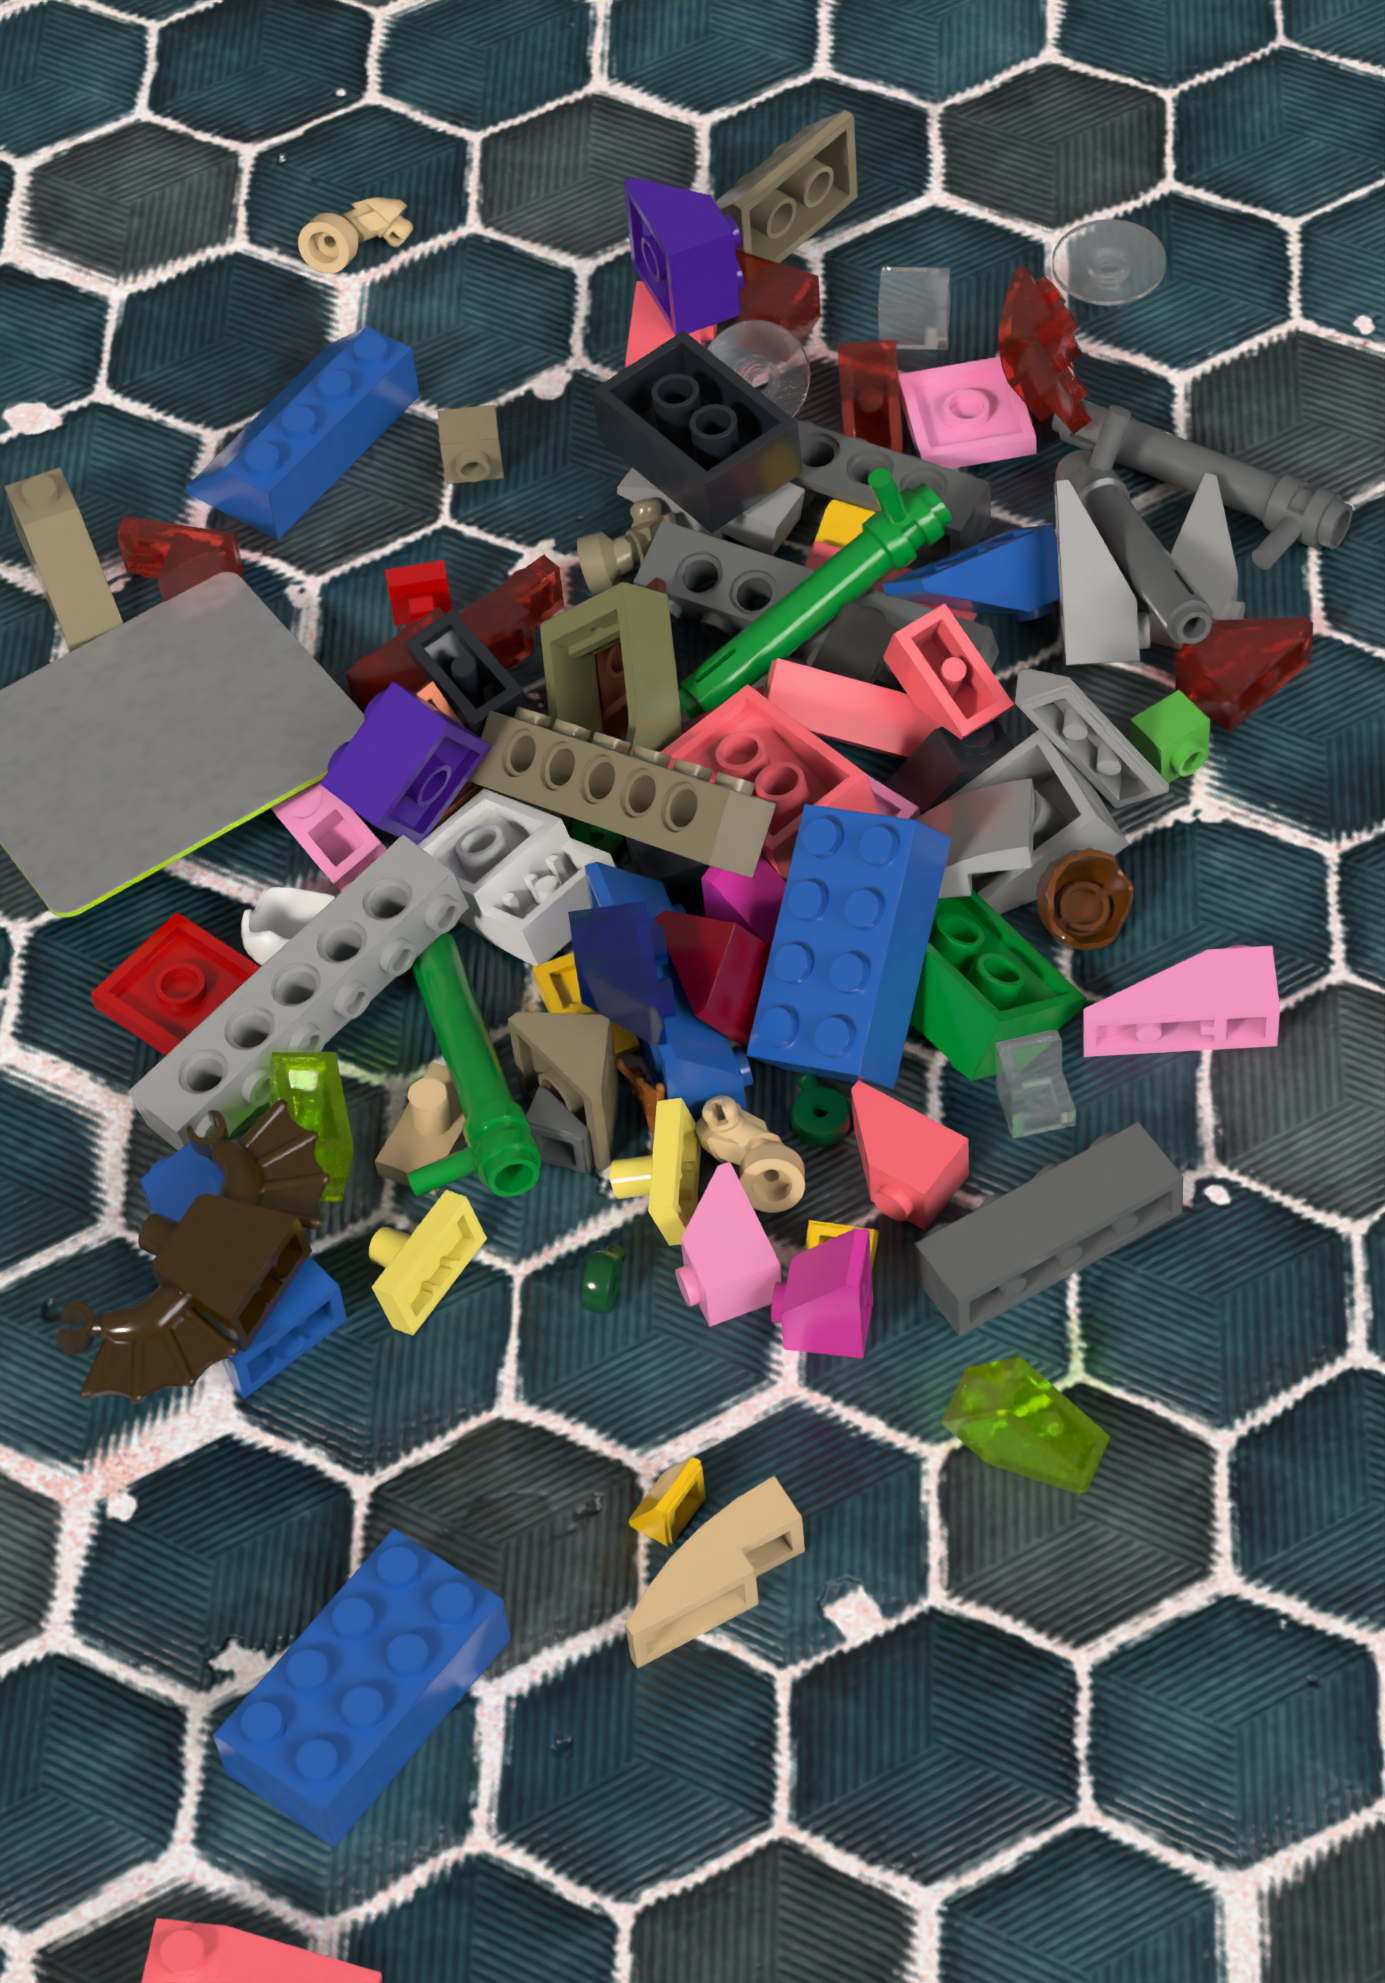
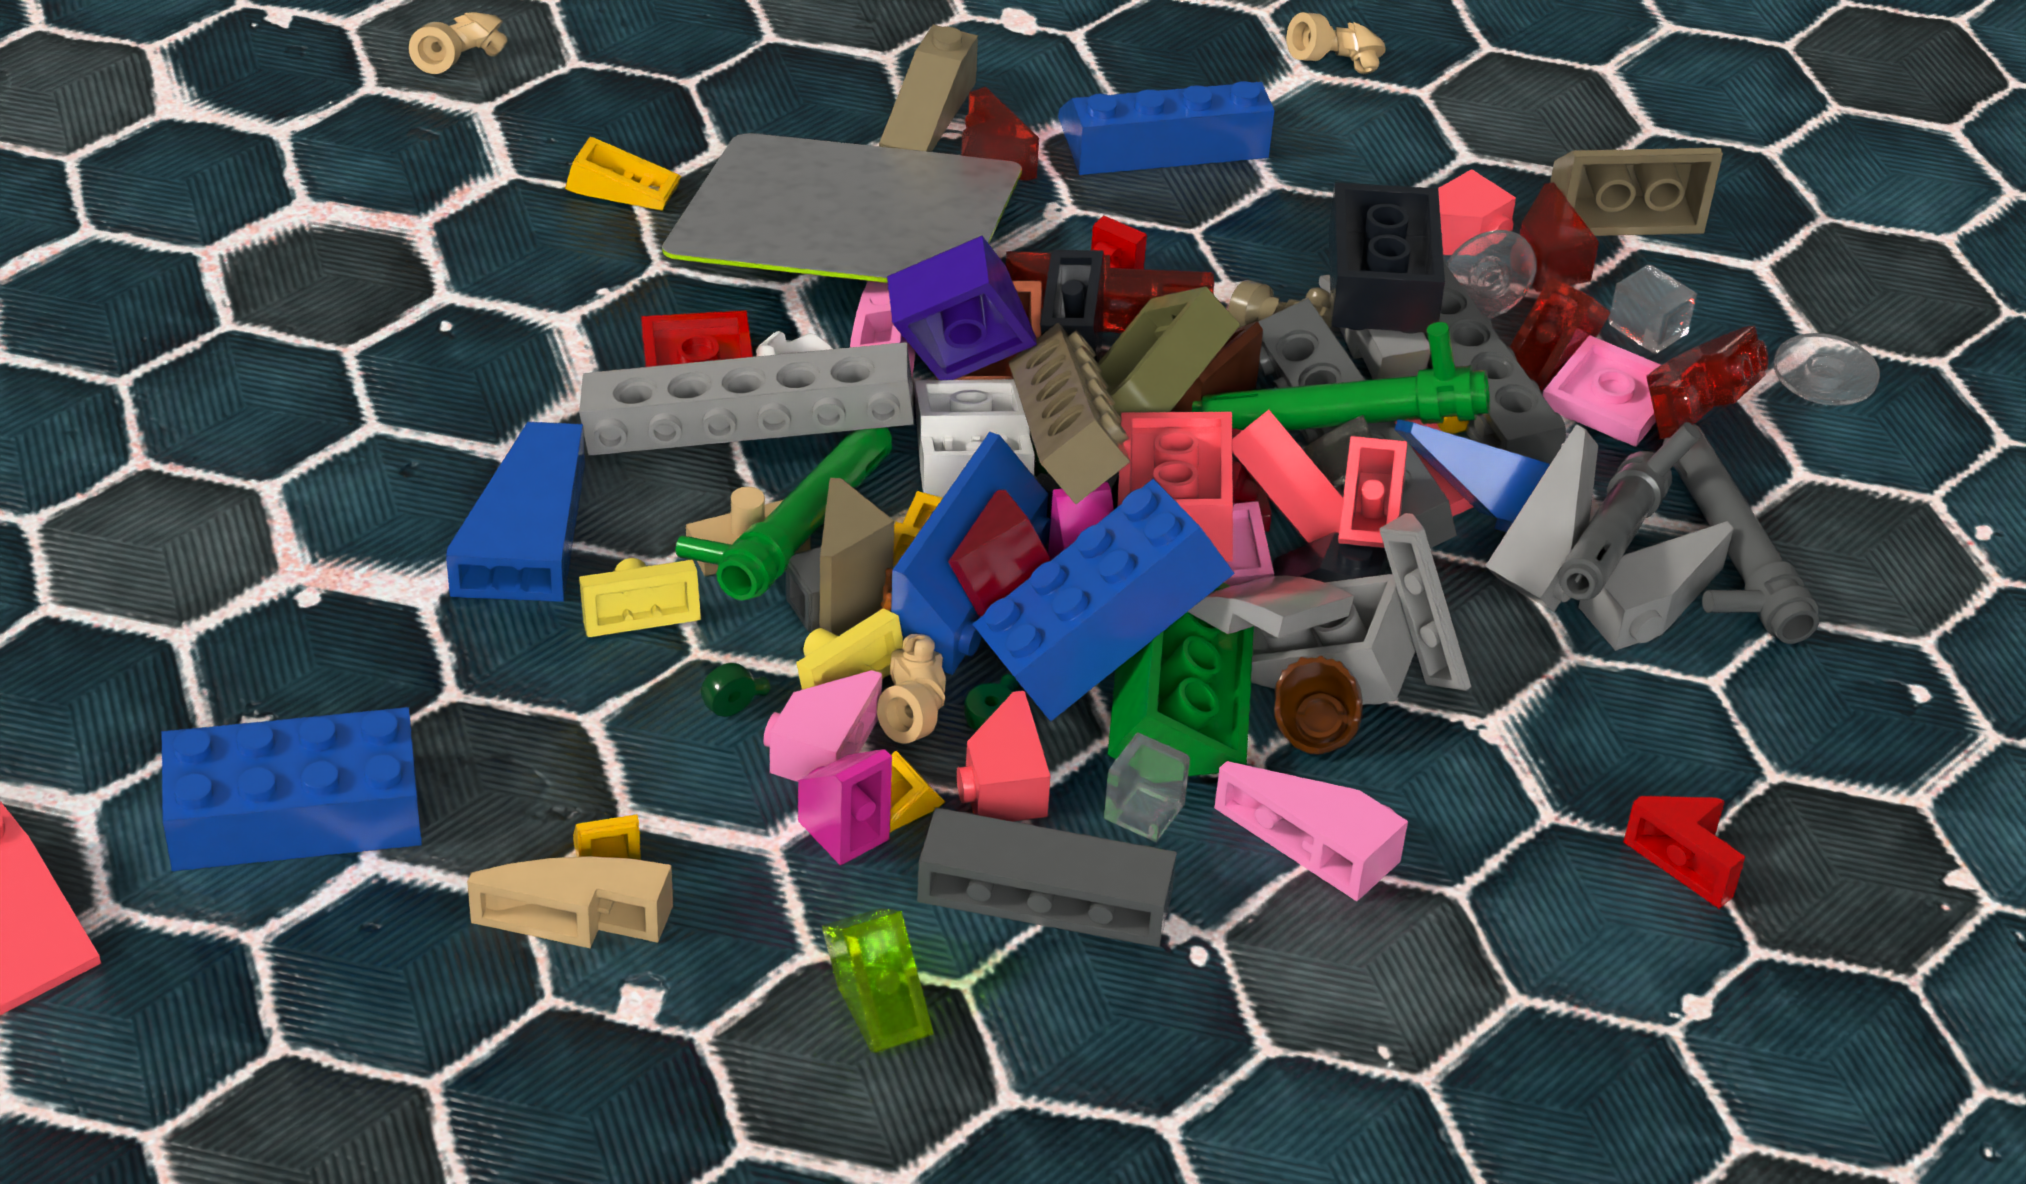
camera: 35 degrees right, 10 degrees down
(215, 1267) = (496, 484): dark brown torso -> none
(317, 1103) = (660, 469): clear neon green slope -> none
(470, 444) = (1256, 194): dark tan plate -> none
(618, 970) = (927, 489): clear blue slope -> none
(684, 253) = (1502, 159): dark purple slope -> none
(1172, 736) = (1507, 662): bright green plate -> none
(1242, 665) = (1619, 657): clear red slope -> none

